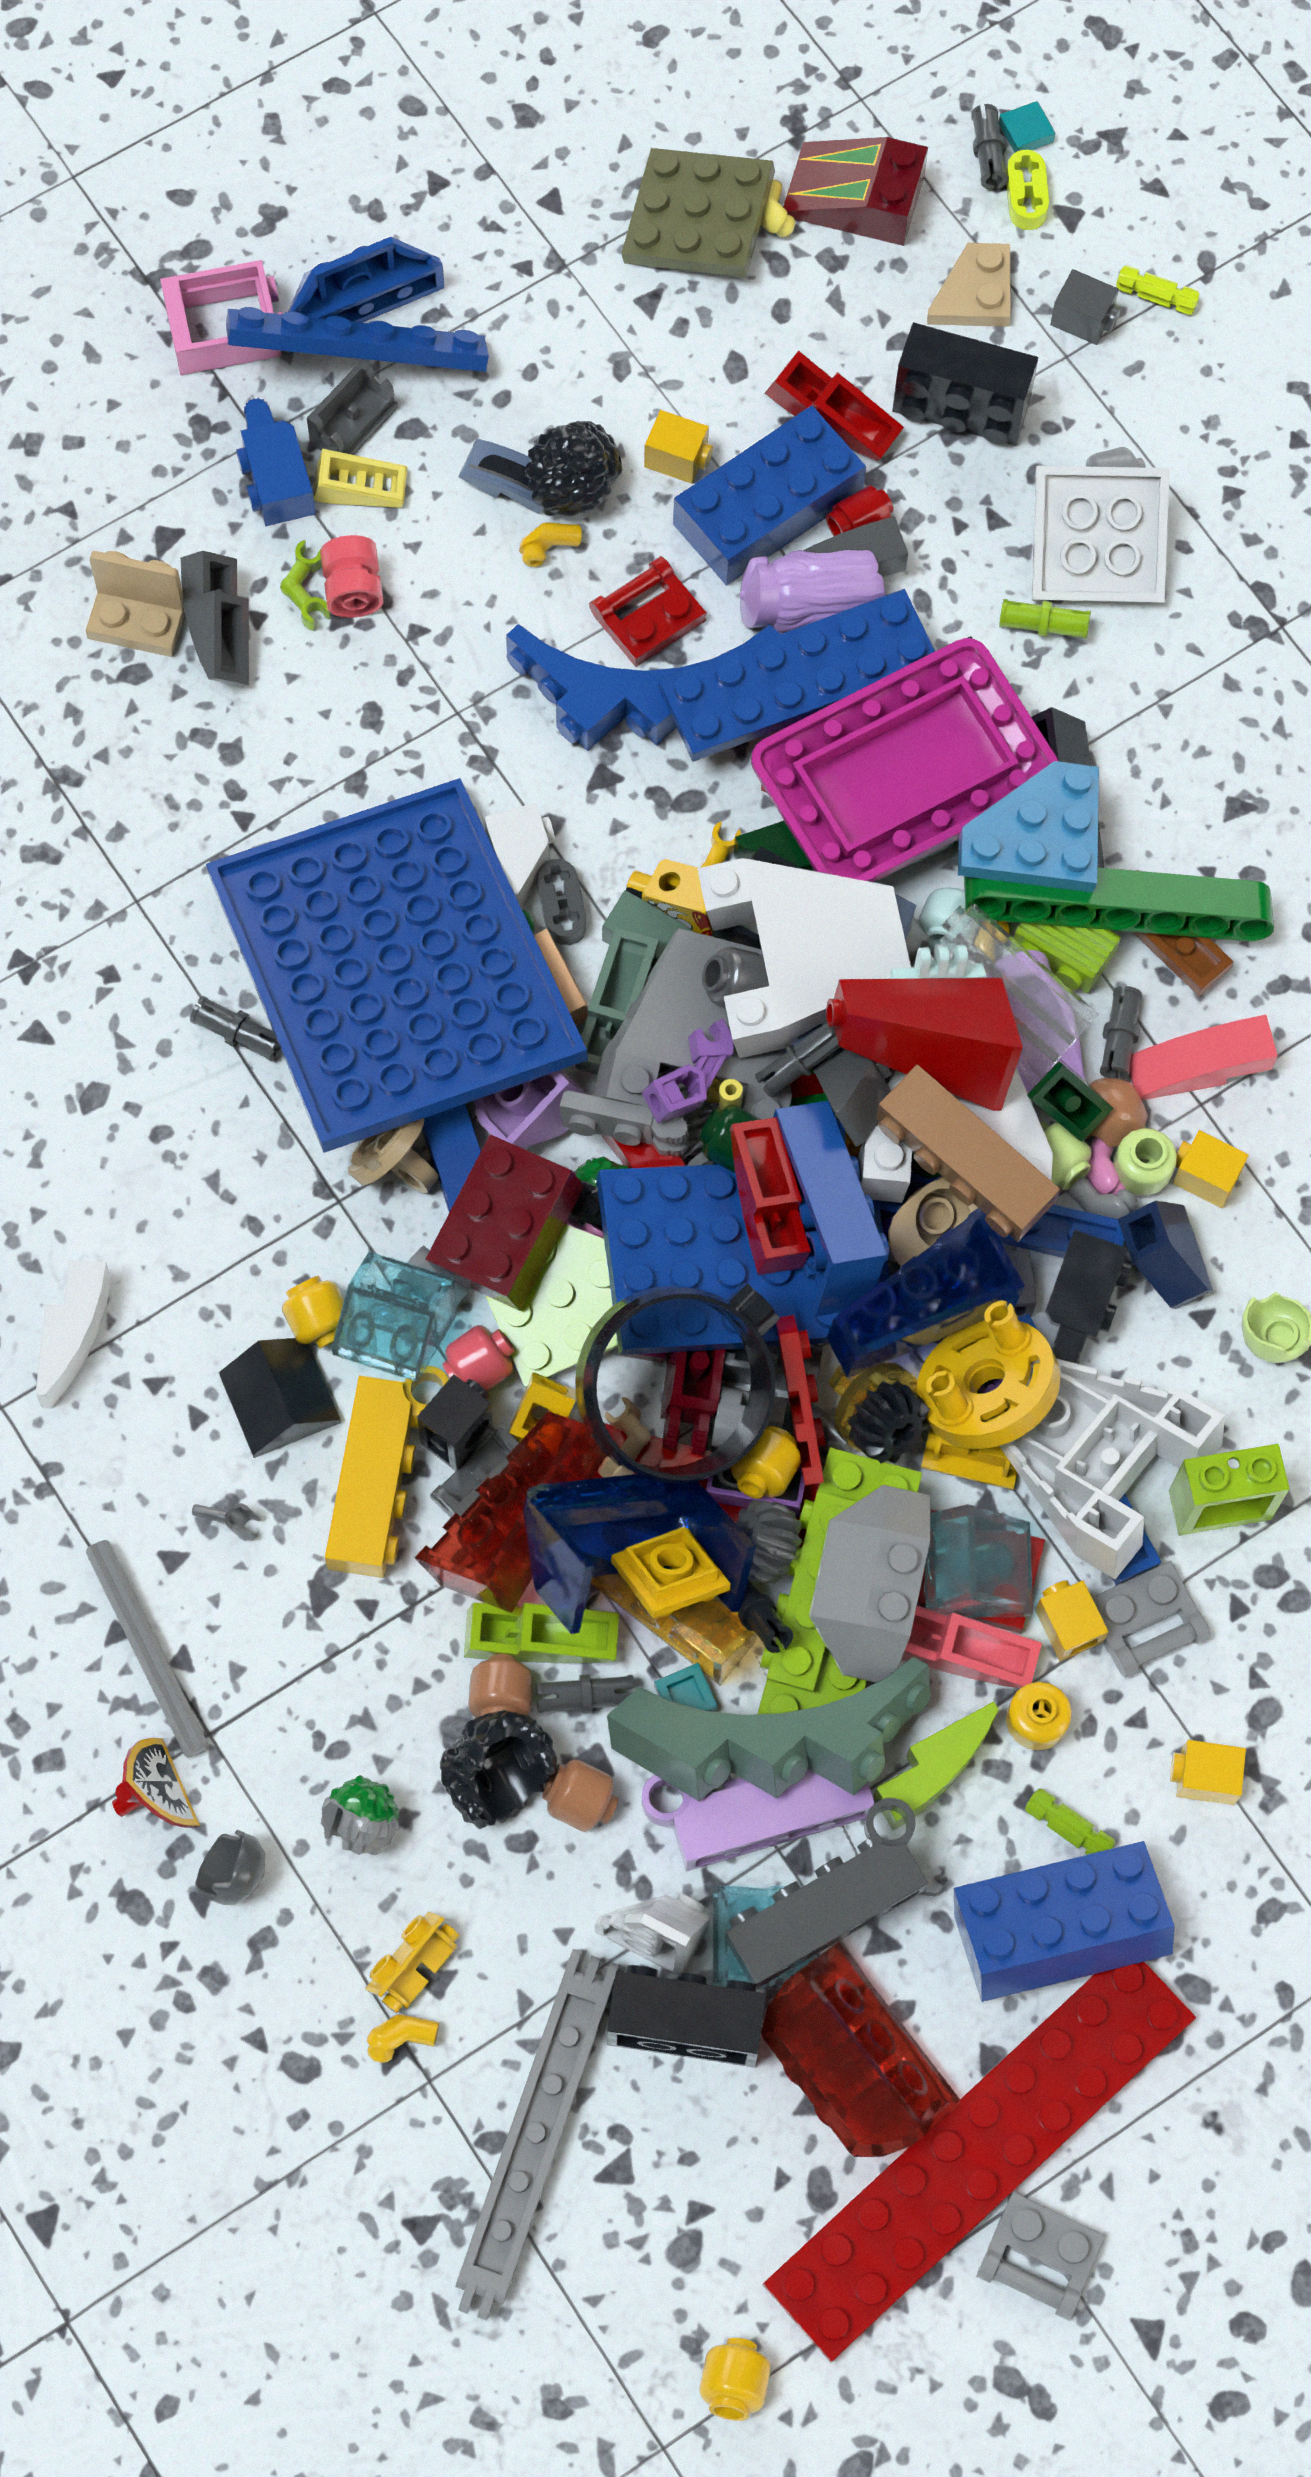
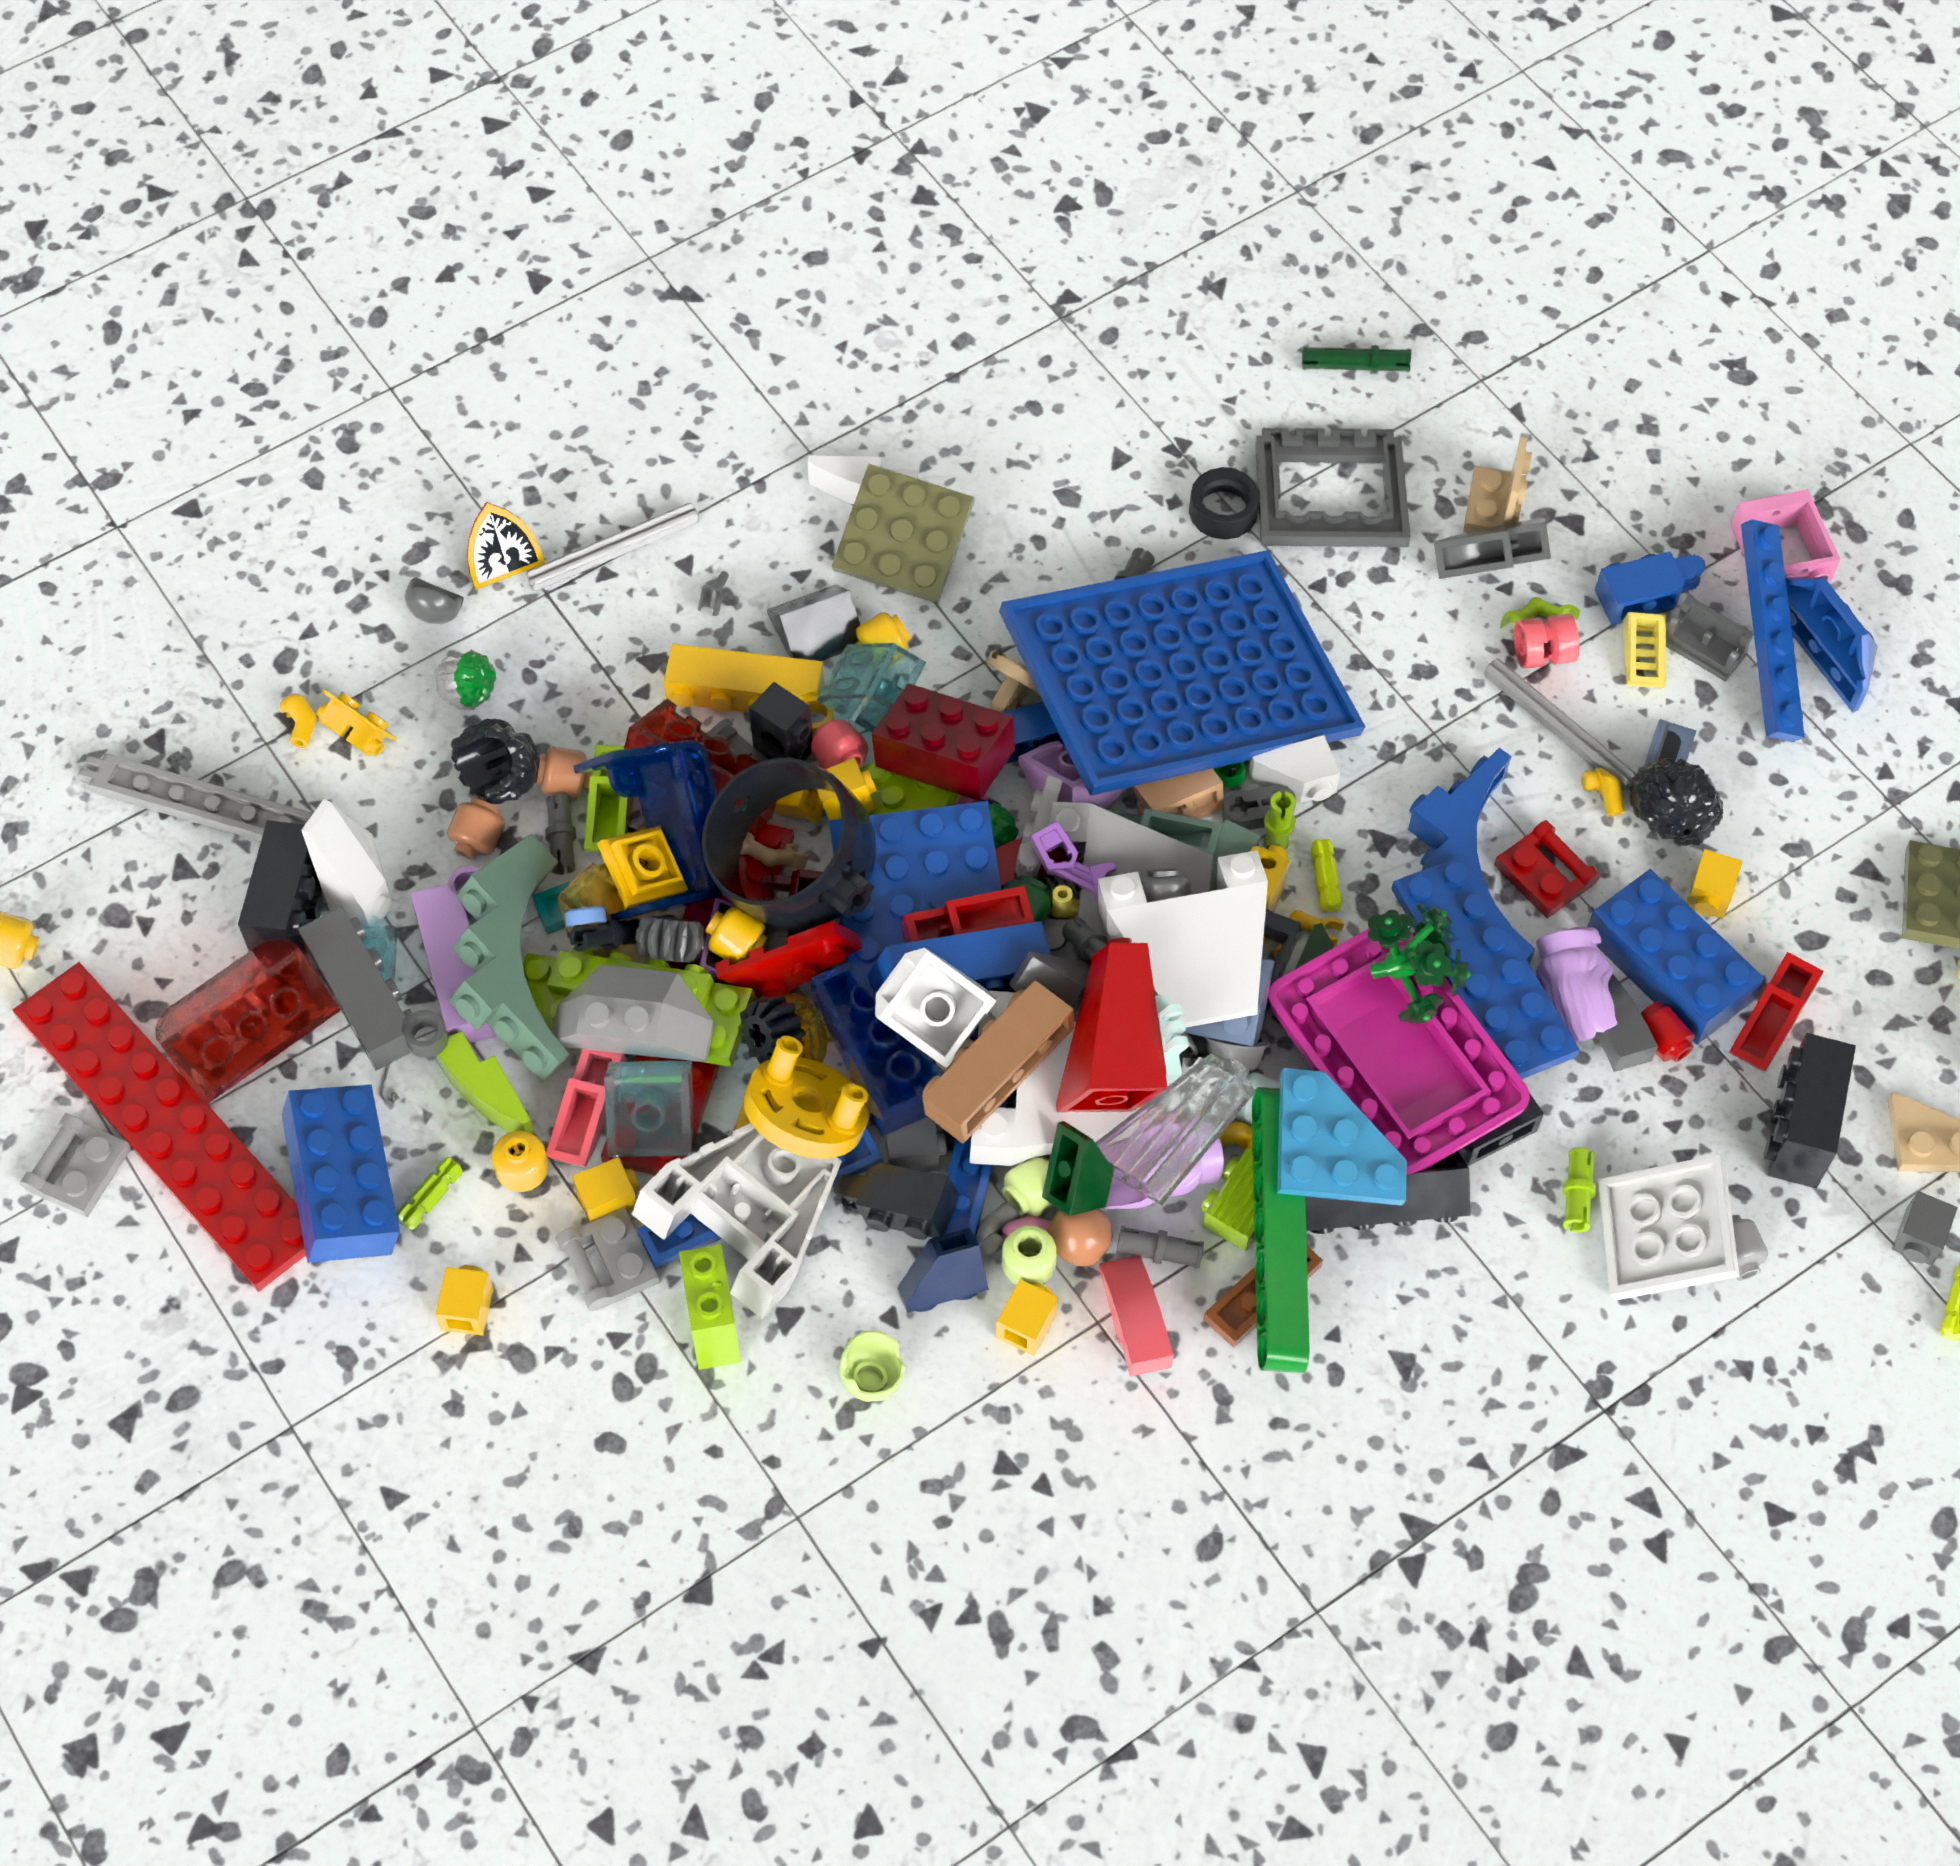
camera: 90 degrees right, 10 degrees down
(41, 779) = (1317, 527): none -> dark grey hinge
(122, 880) = (1229, 481): none -> black tyre
(161, 1282) = (903, 533): none -> olive plate
(453, 580) = (1557, 721): none -> light grey axle
(557, 1341) = (858, 782): none -> yellow brick
(602, 871) = (1280, 820): none -> lime pin
(654, 836) = (1326, 875): none -> neon yellow axle
(749, 1631) = (585, 916): none -> medium blue tile
(816, 734) = (1422, 956): none -> dark green plant
(911, 1213) = (932, 1004): none -> white slope

